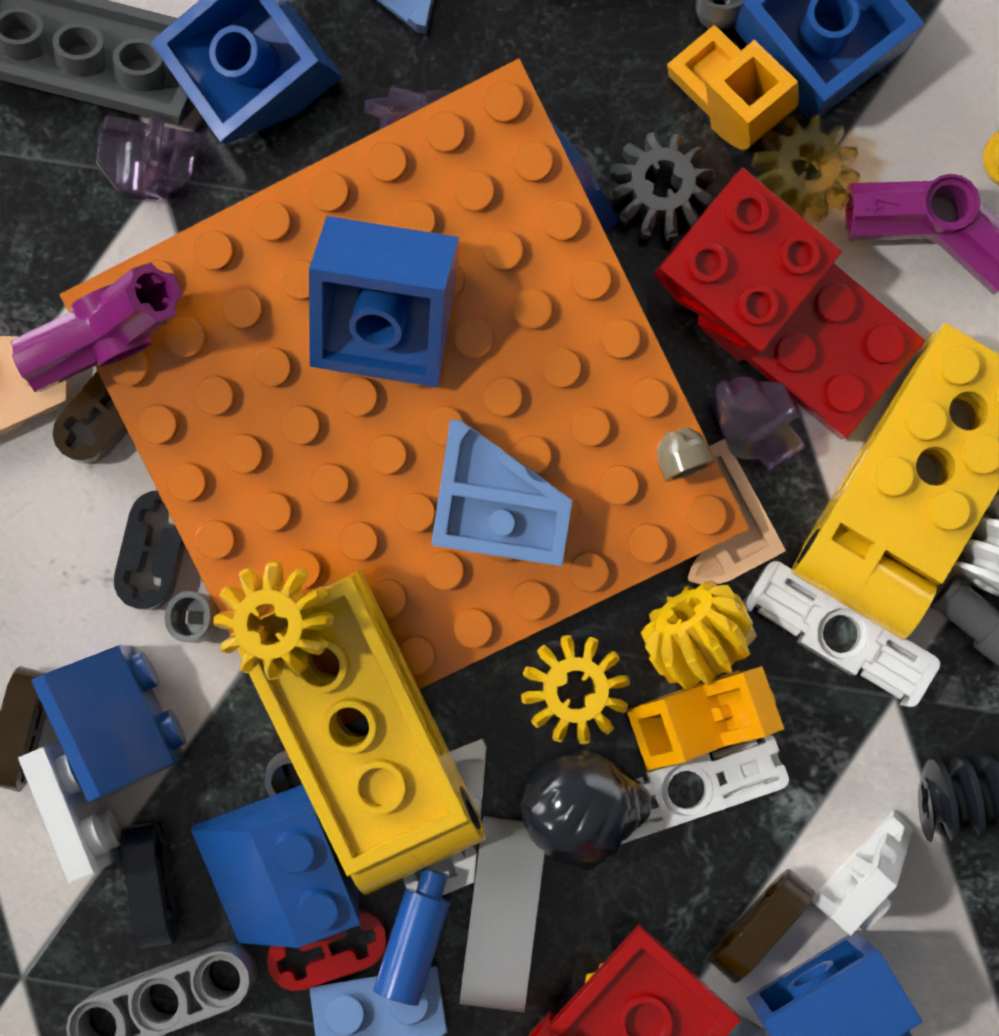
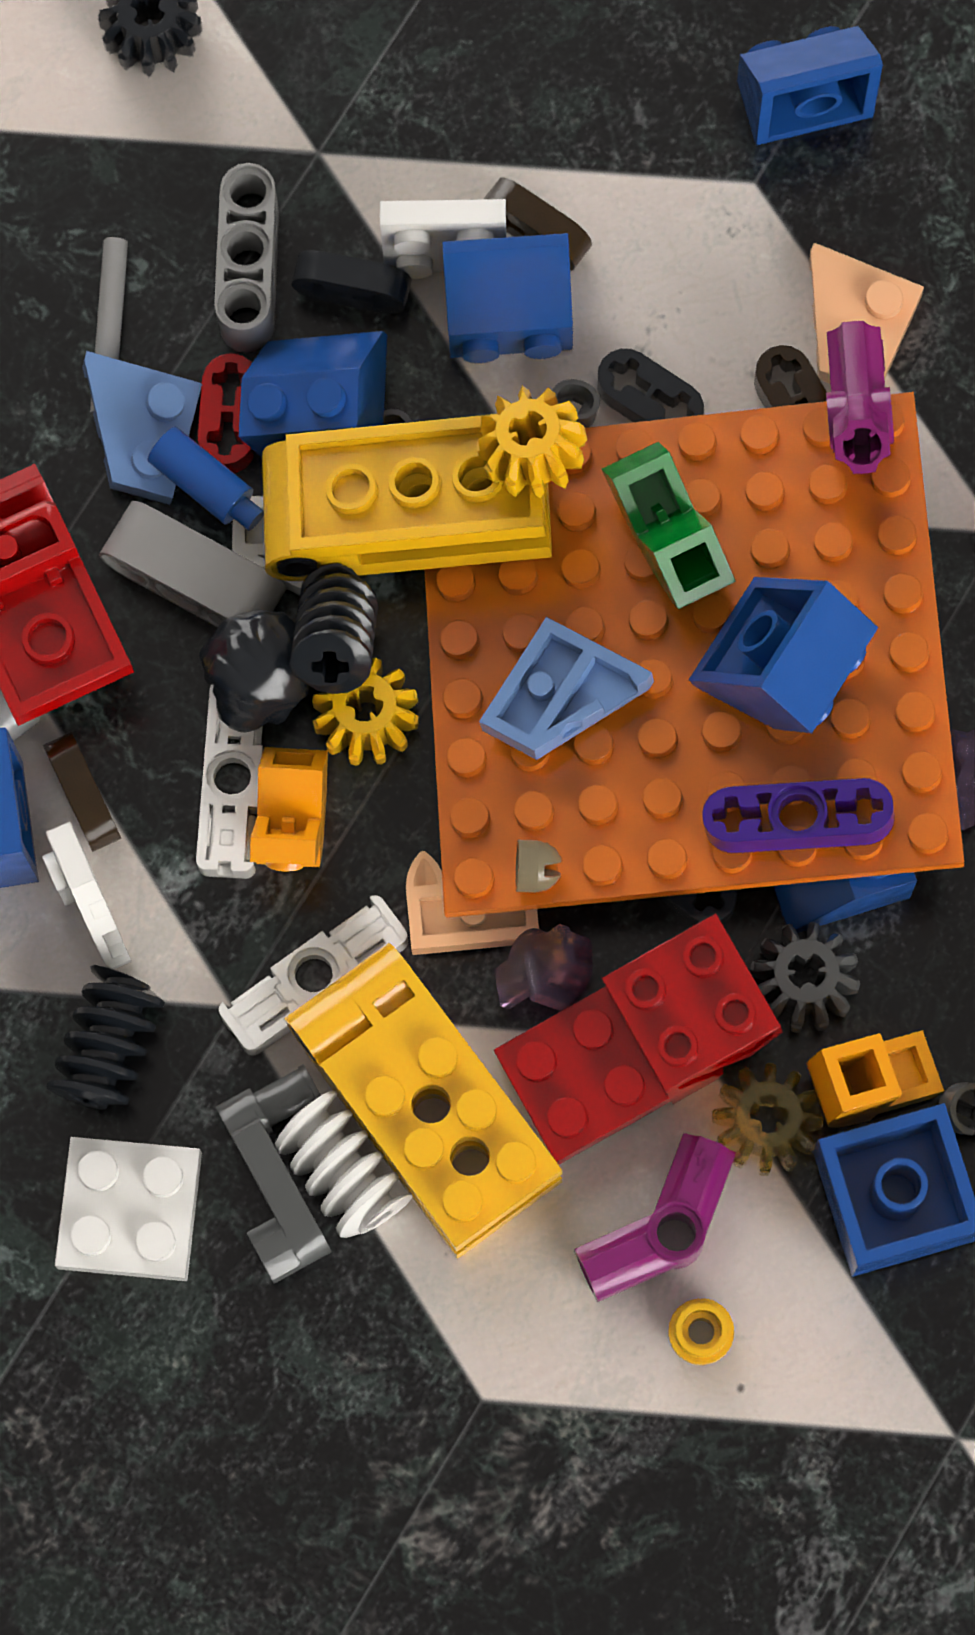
camera: 110 degrees right, 10 degrees down
(294, 465) = (667, 527): none -> green brick
(502, 186) = (844, 792): none -> dark purple beam
(524, 745) = (334, 630): none -> black piece
(698, 634) = (368, 834): yellow gear -> none

